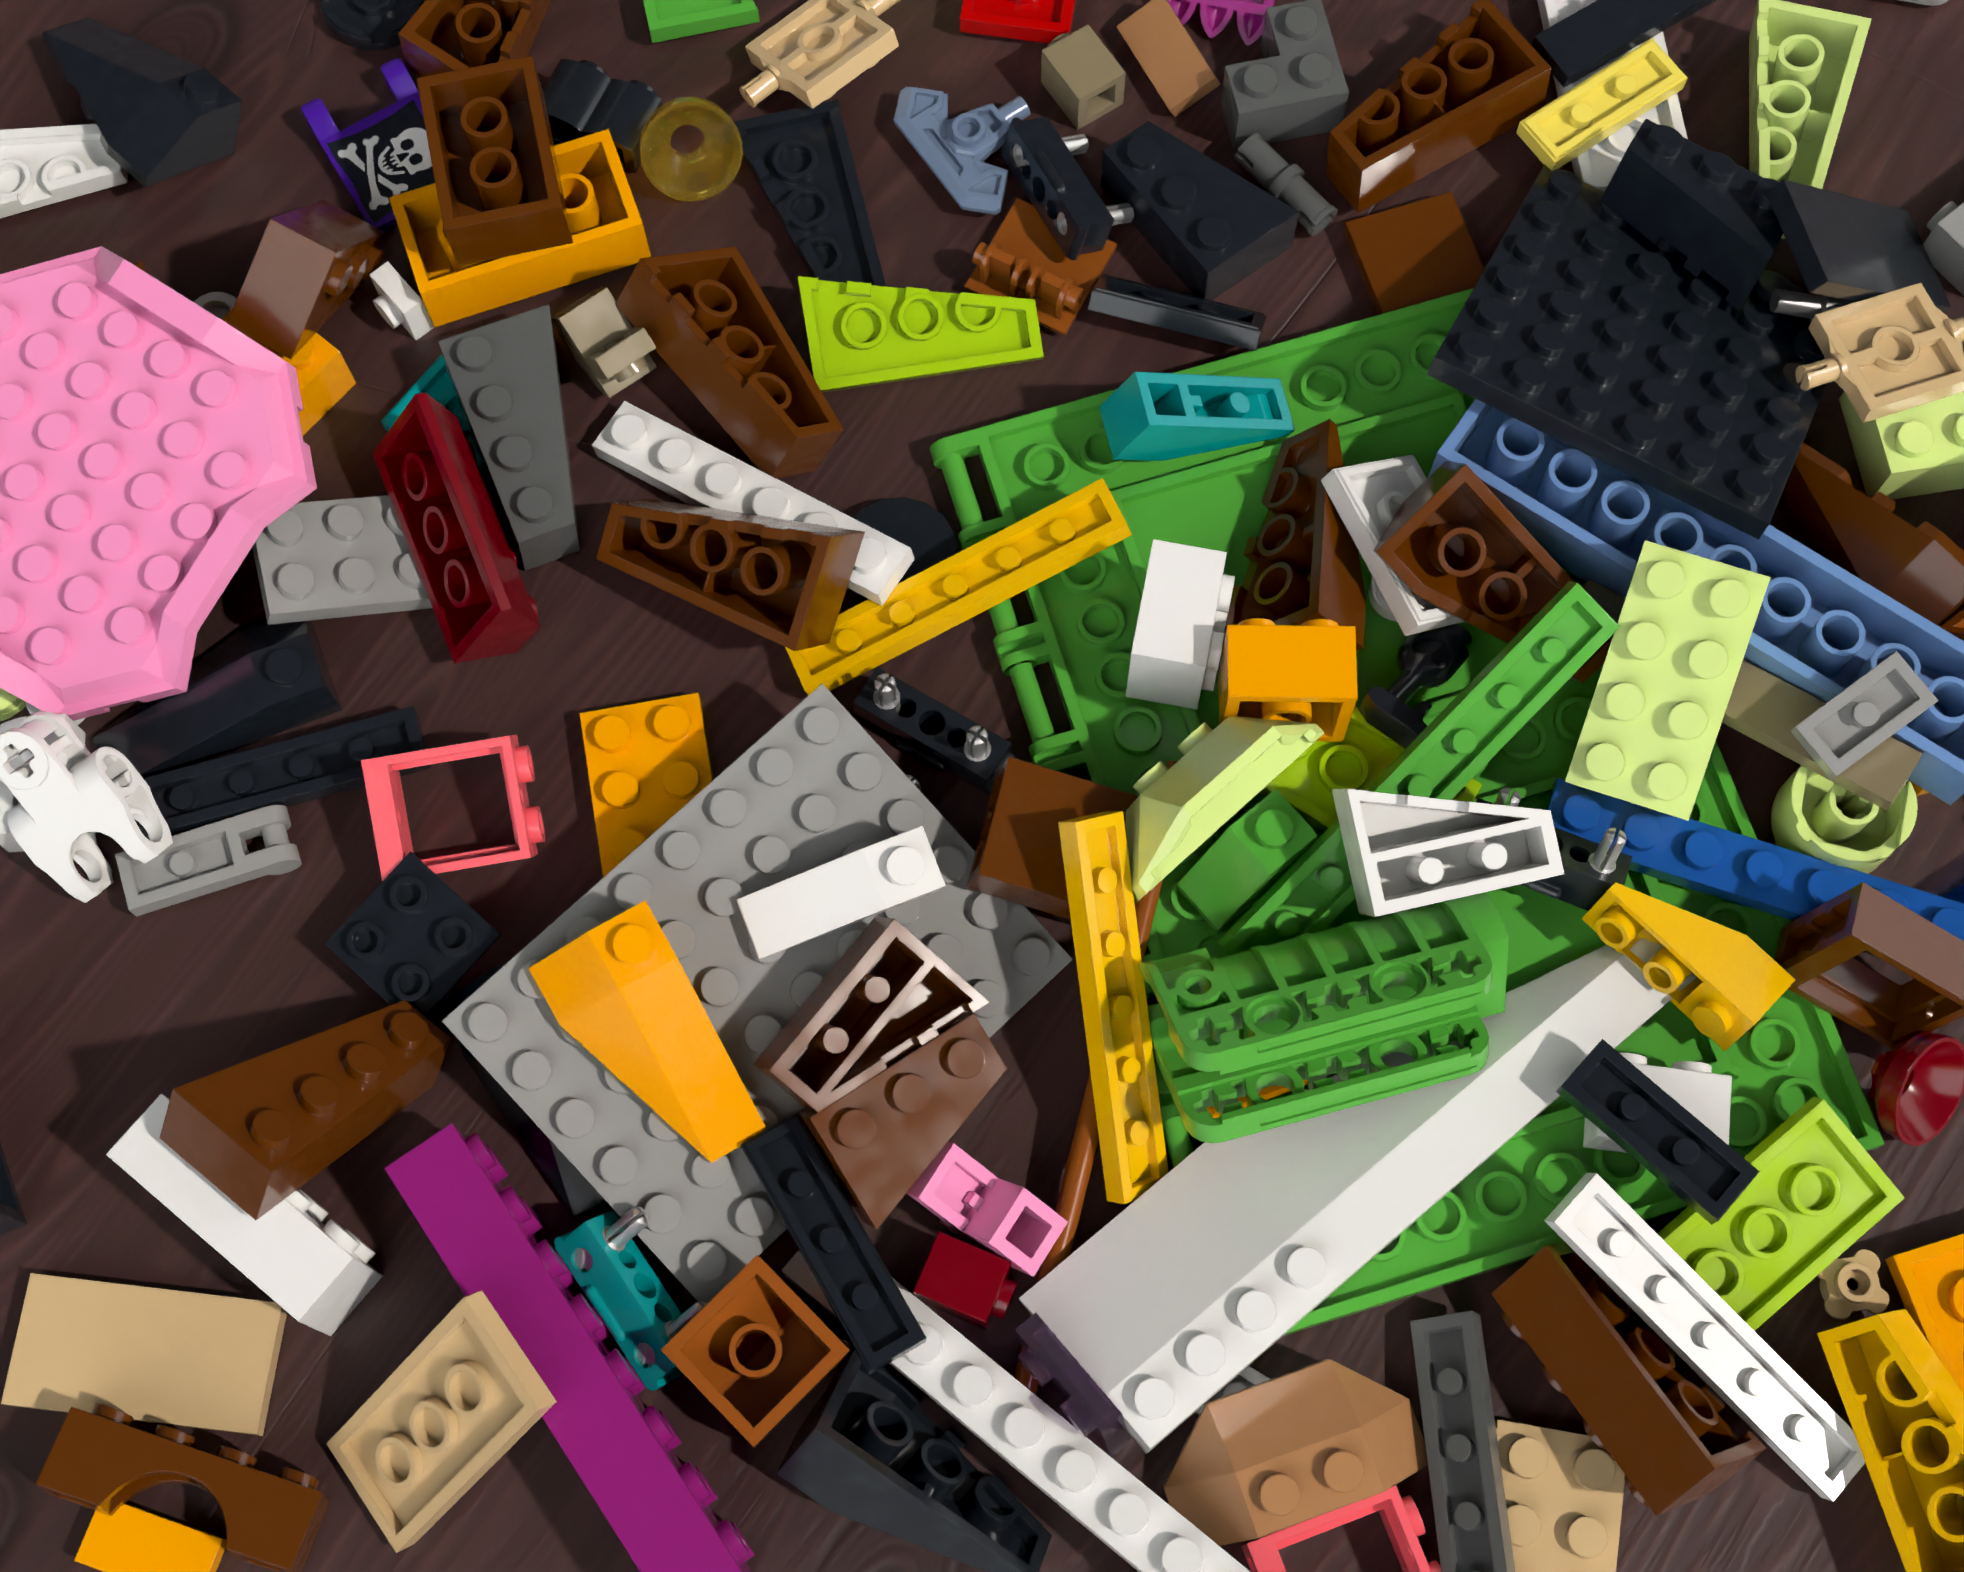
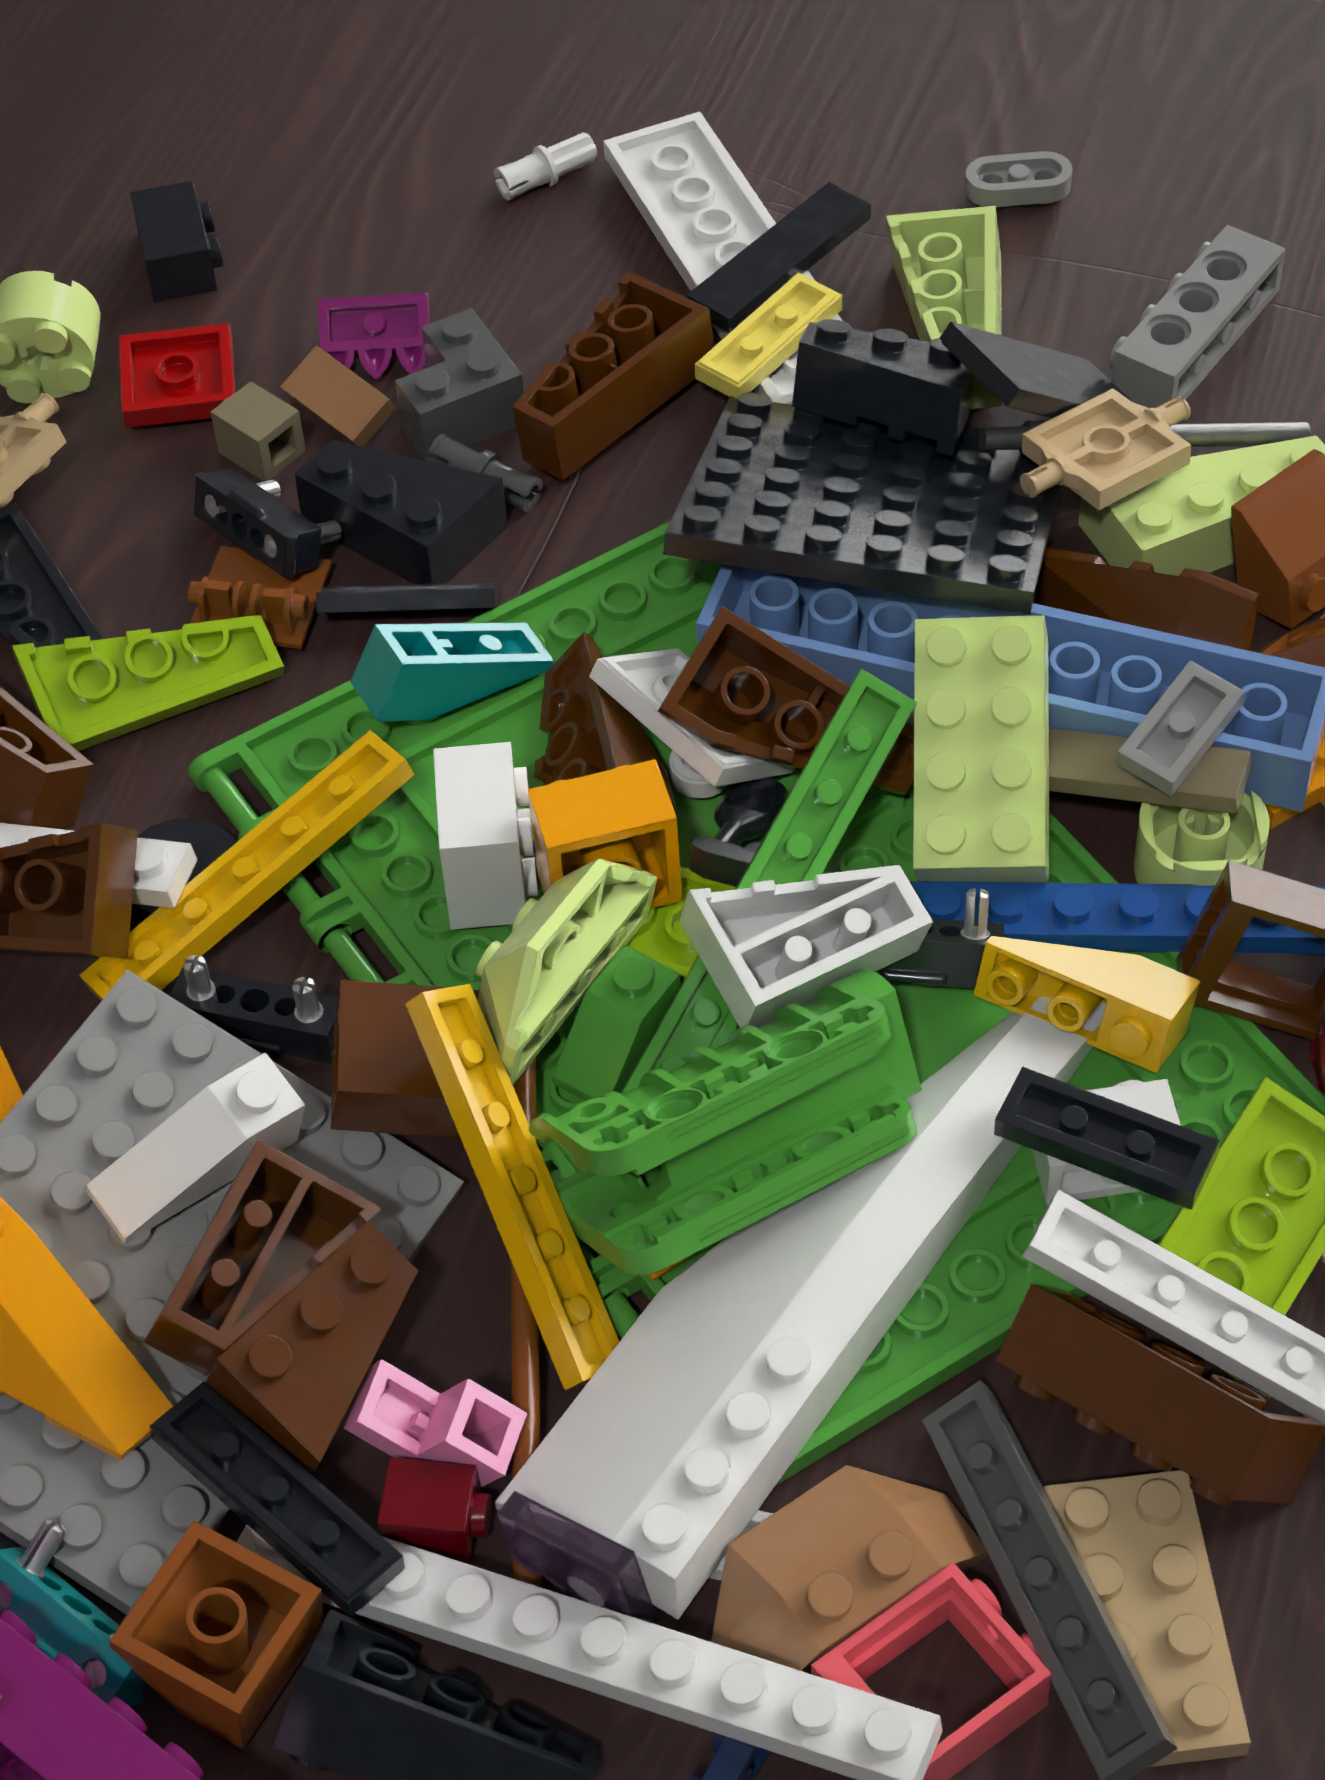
camera: 15 degrees left, 20 degrees down
(959, 145) = (151, 516): sand blue piece -> none
(1414, 253) = (622, 497): reddish brown tile -> none

